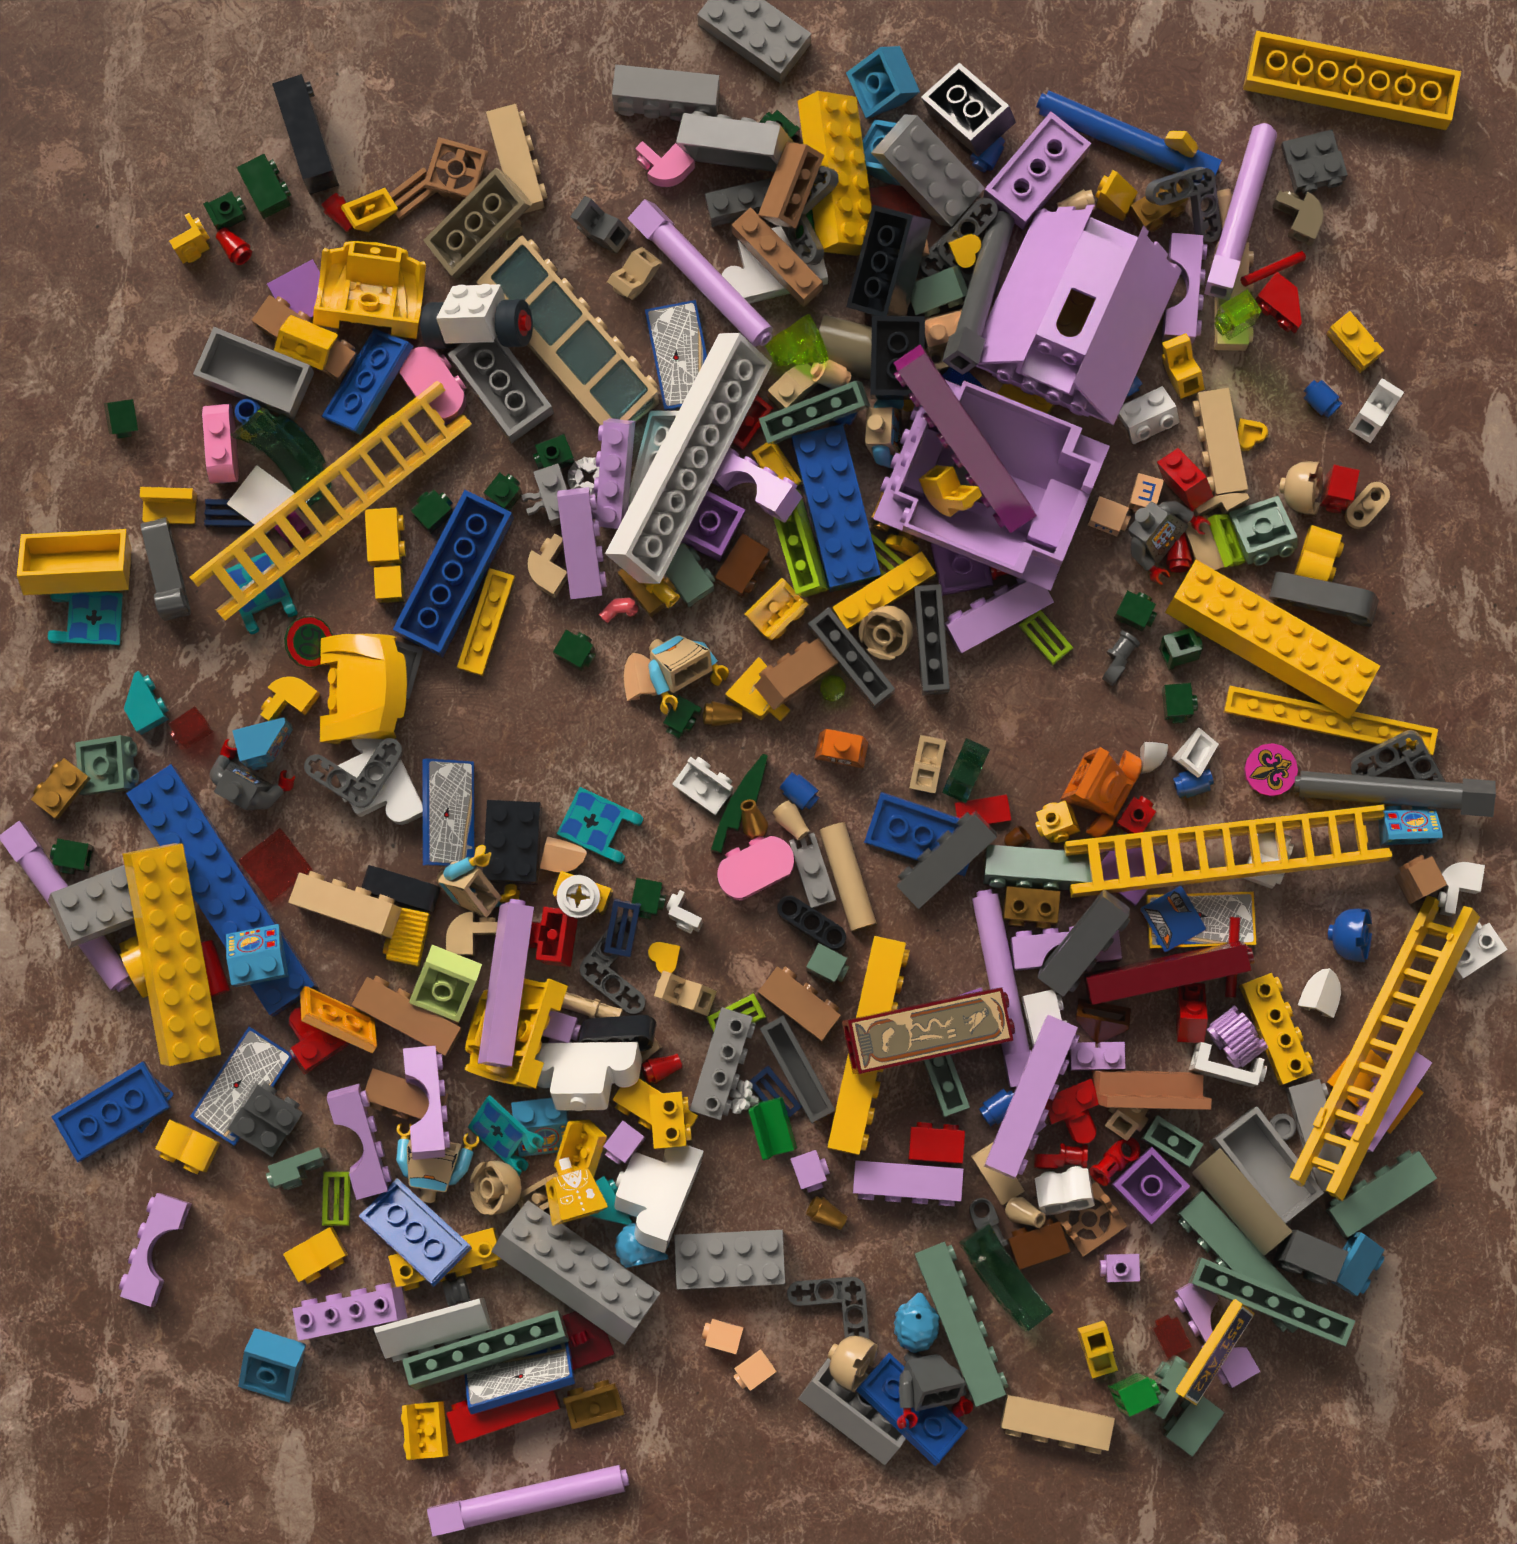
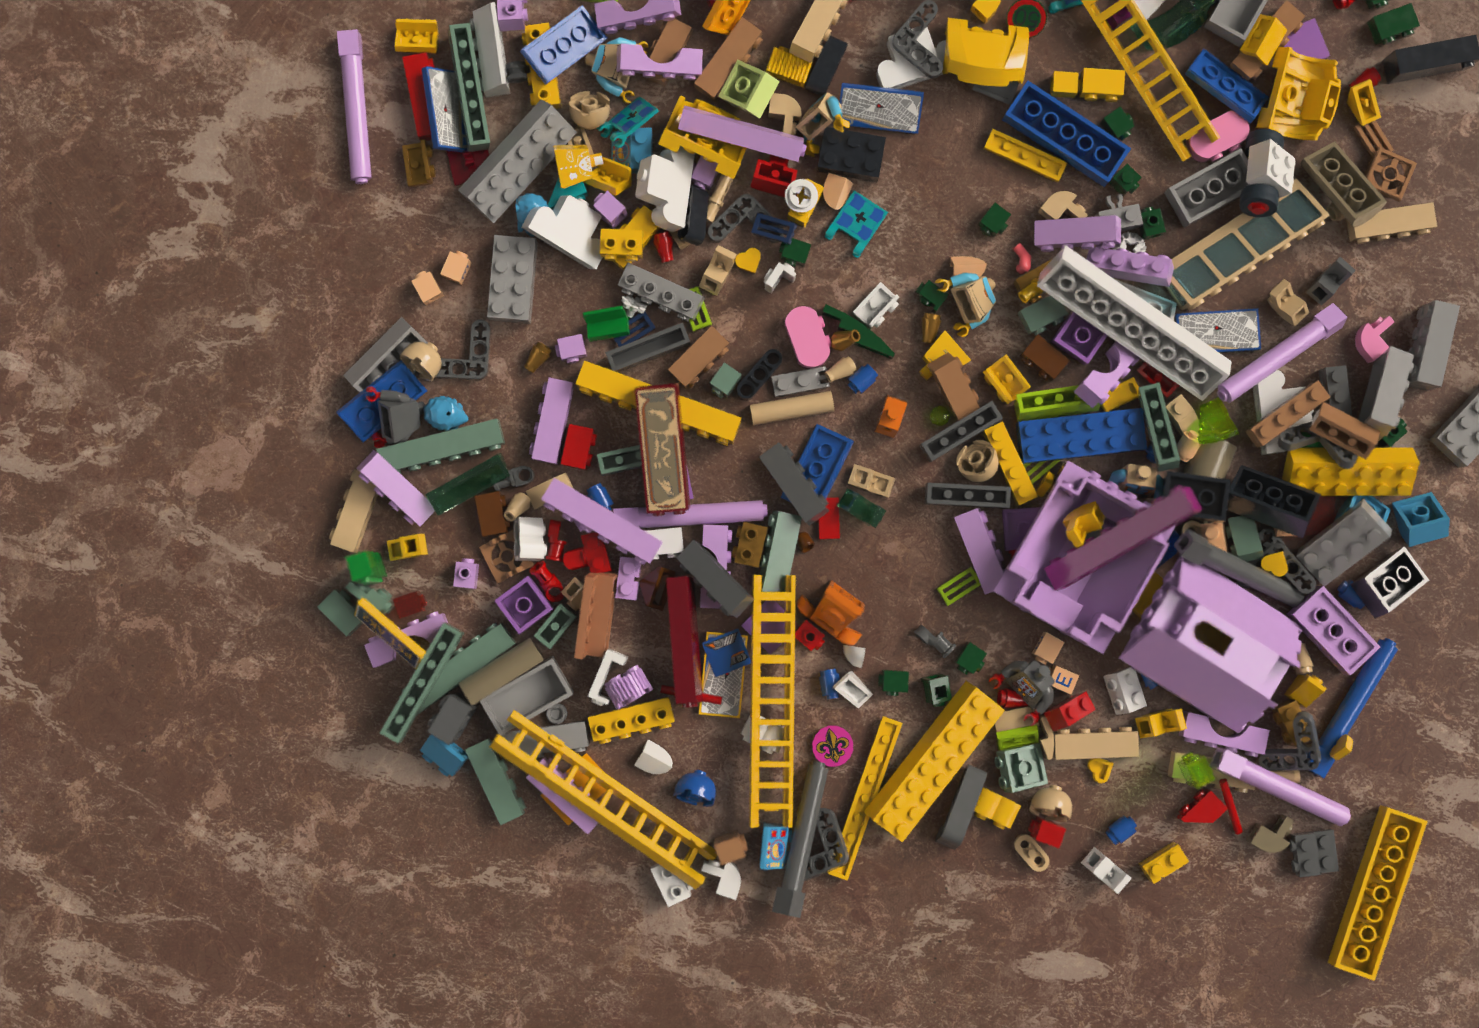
camera: 90 degrees right, 5 degrees up
(1024, 1372) = (396, 488): none -> lavender brick
(1057, 822) = (812, 573): yellow brick -> none
(1191, 1013) = (650, 656): red slope -> none

